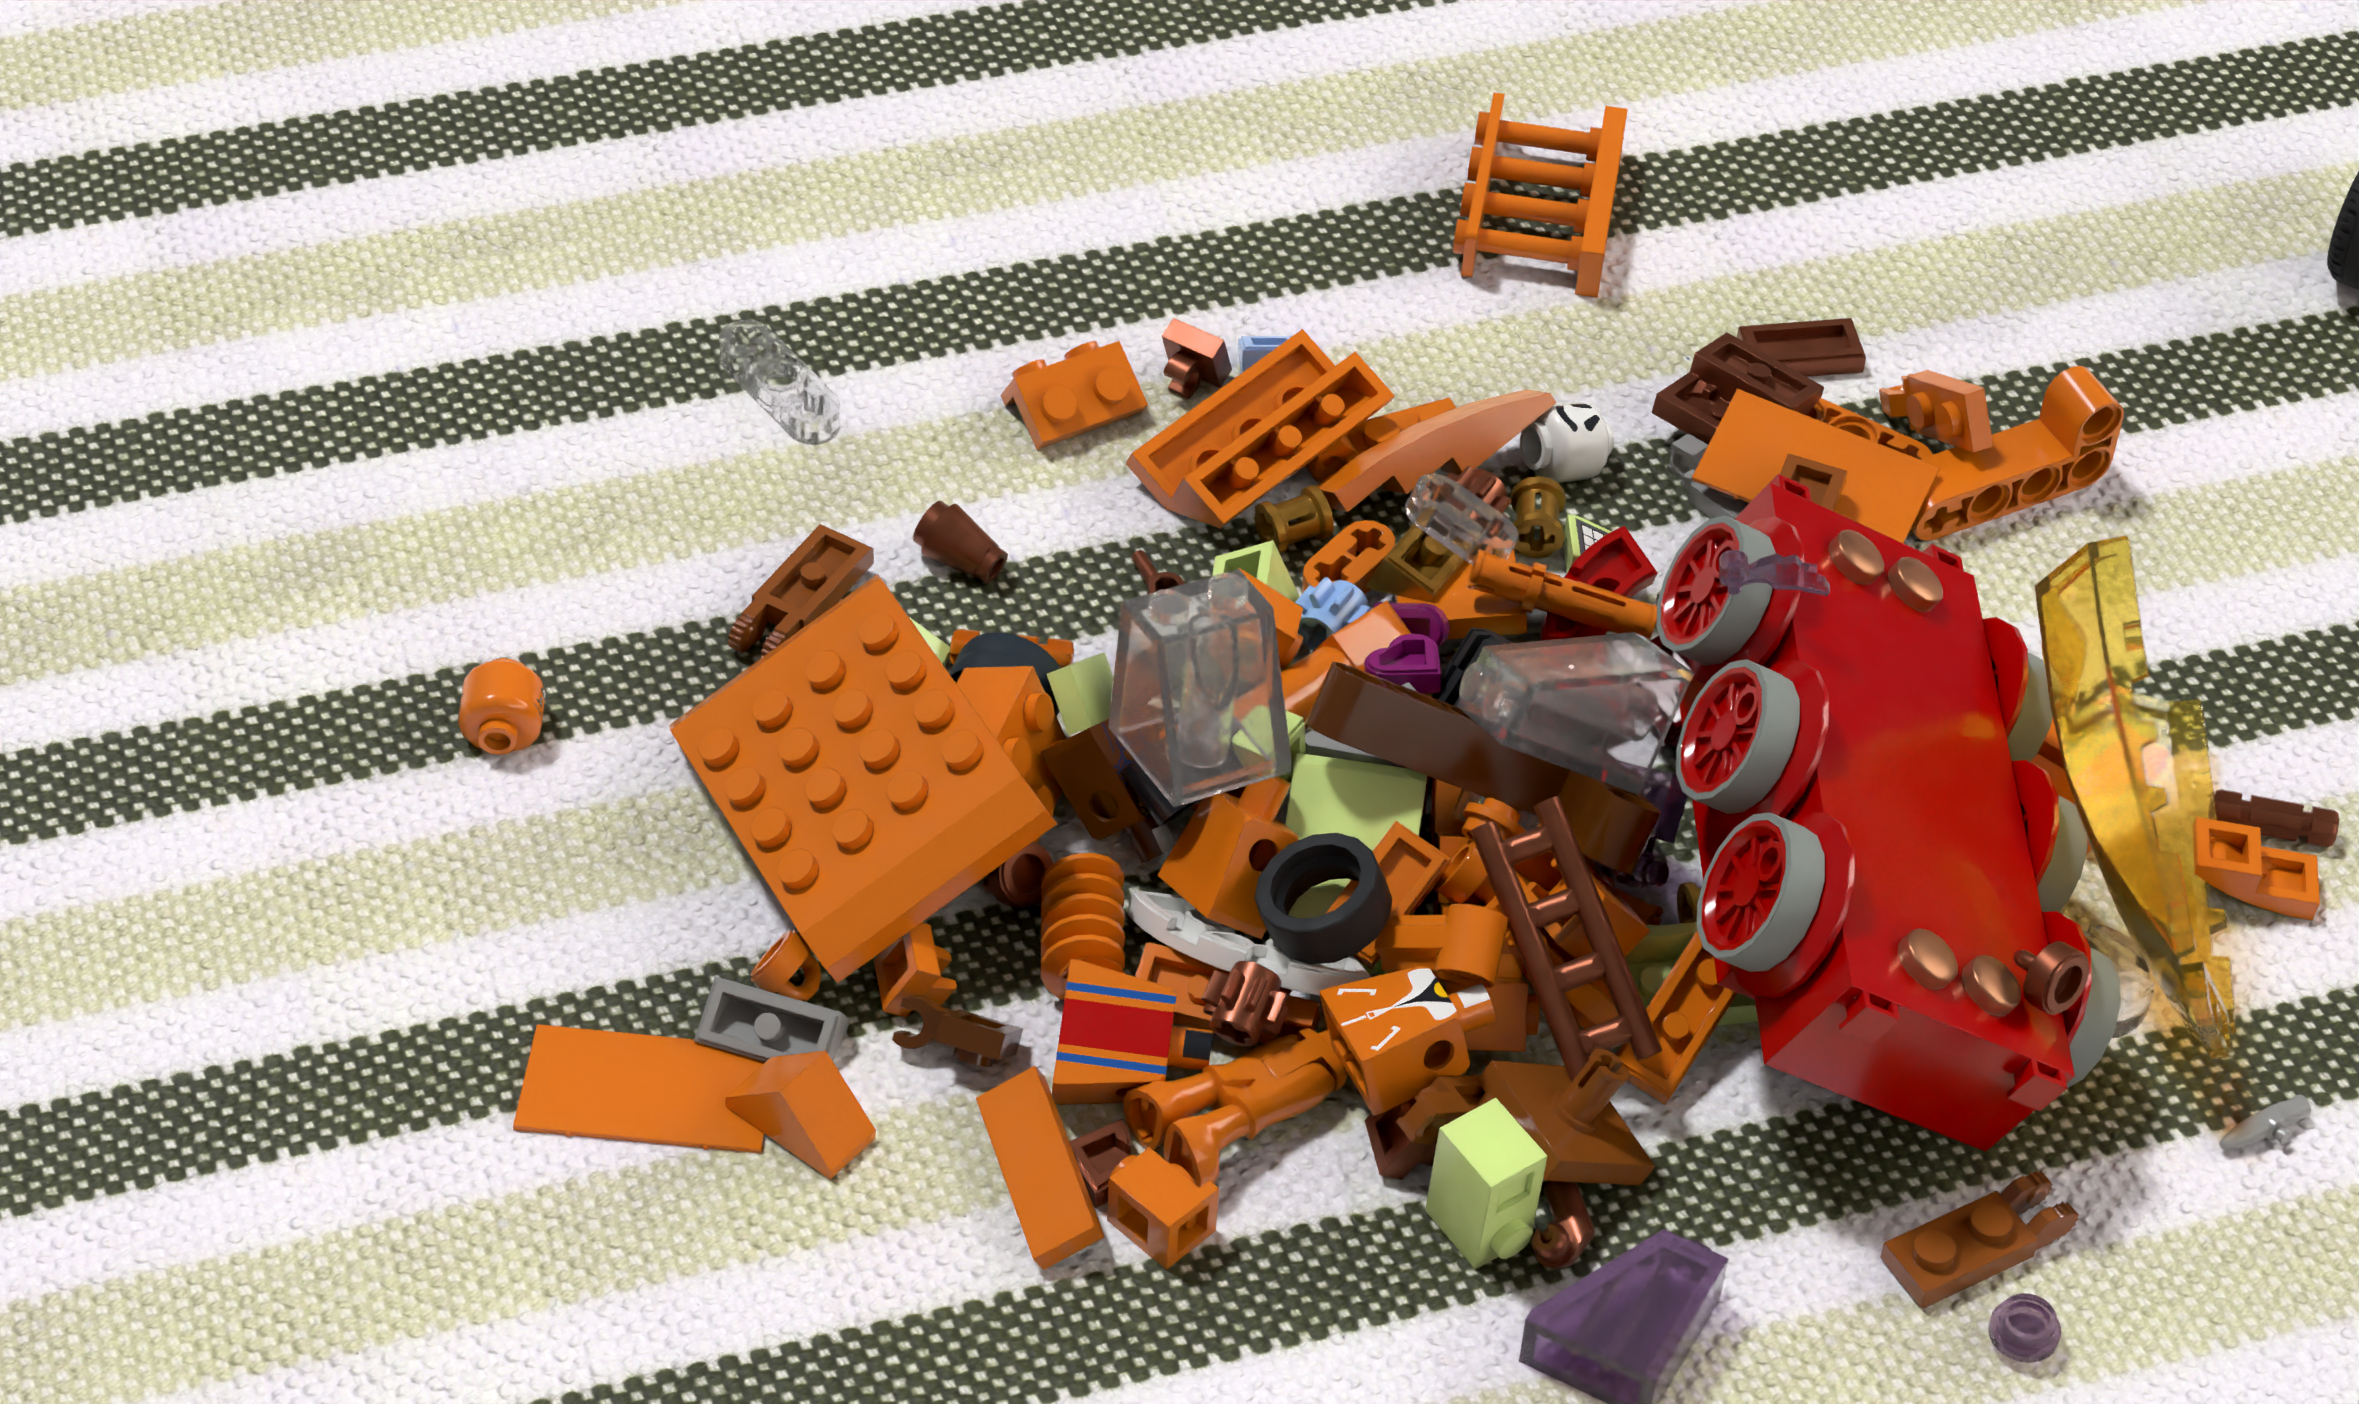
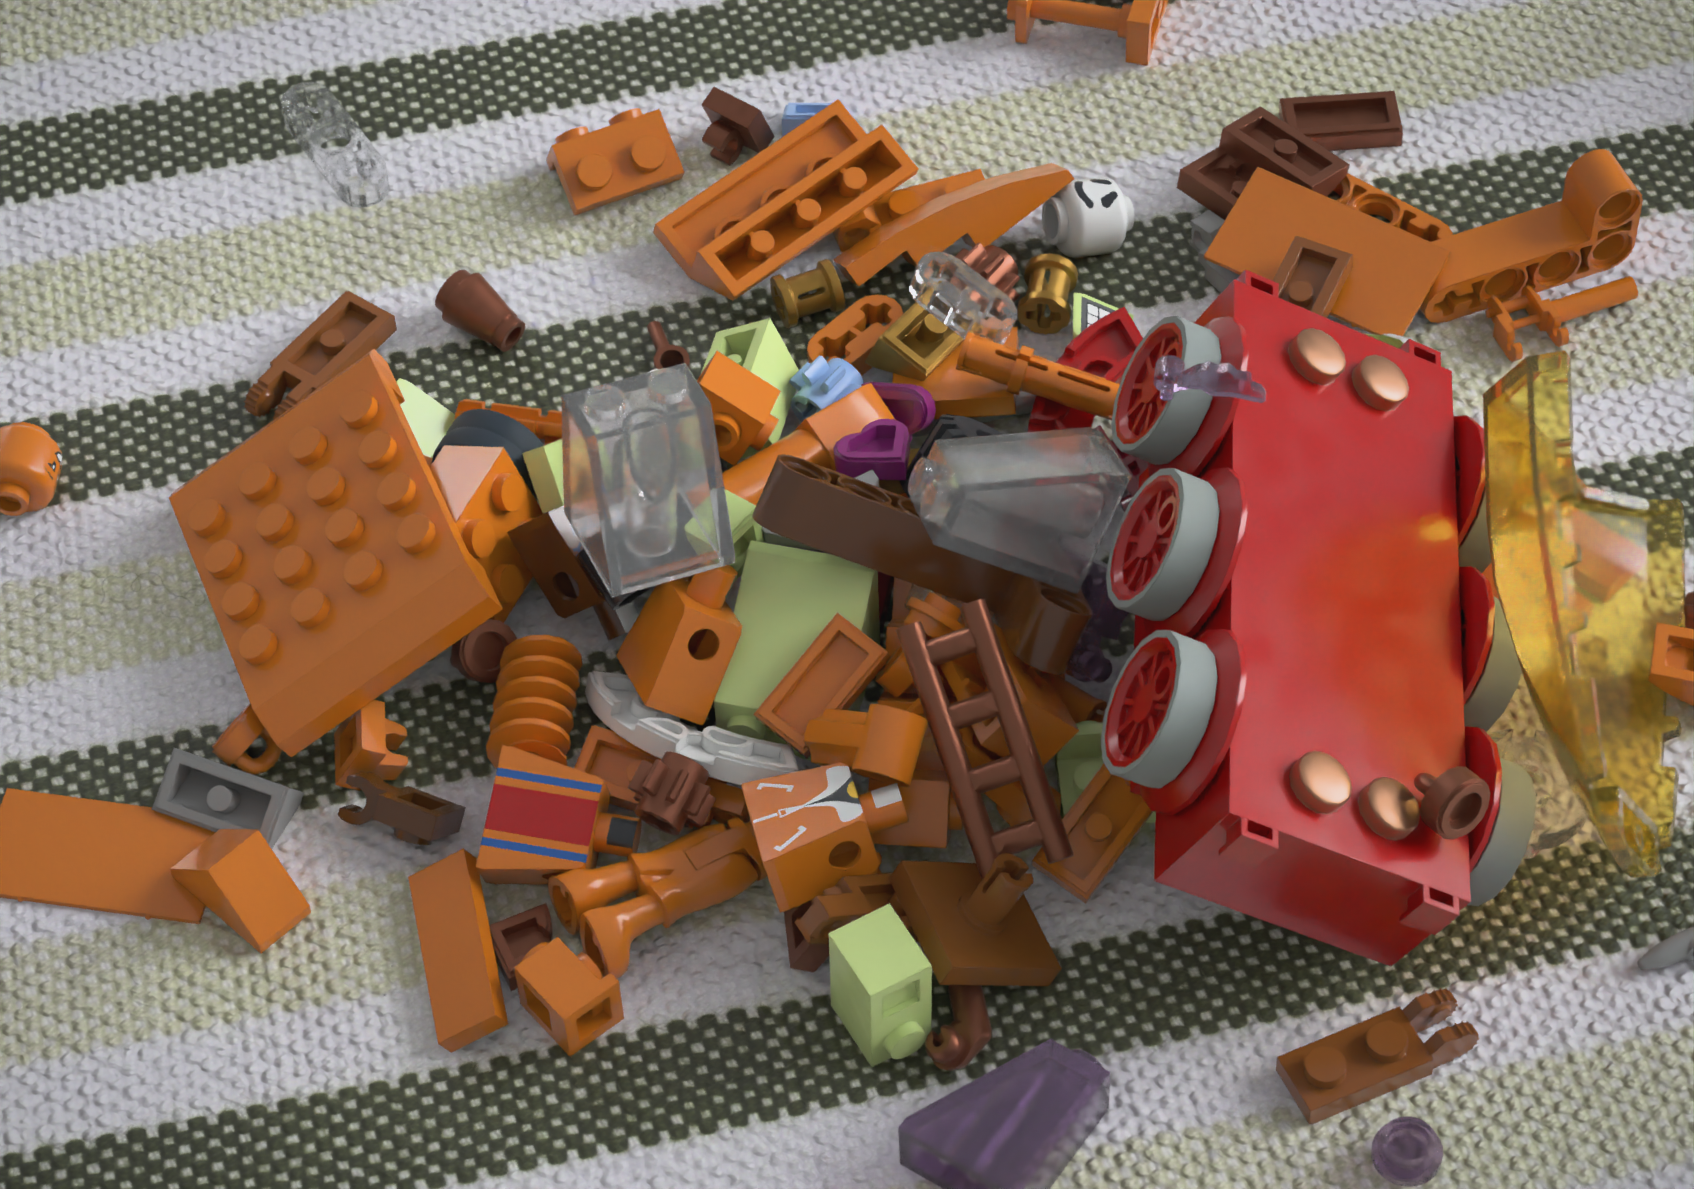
camera: 10 degrees right, 5 degrees up
(1339, 931) = (775, 719): black tyre -> none
(1941, 409) = (1463, 189): orange hinge -> none
(2038, 530) = (1550, 314): none -> orange piece

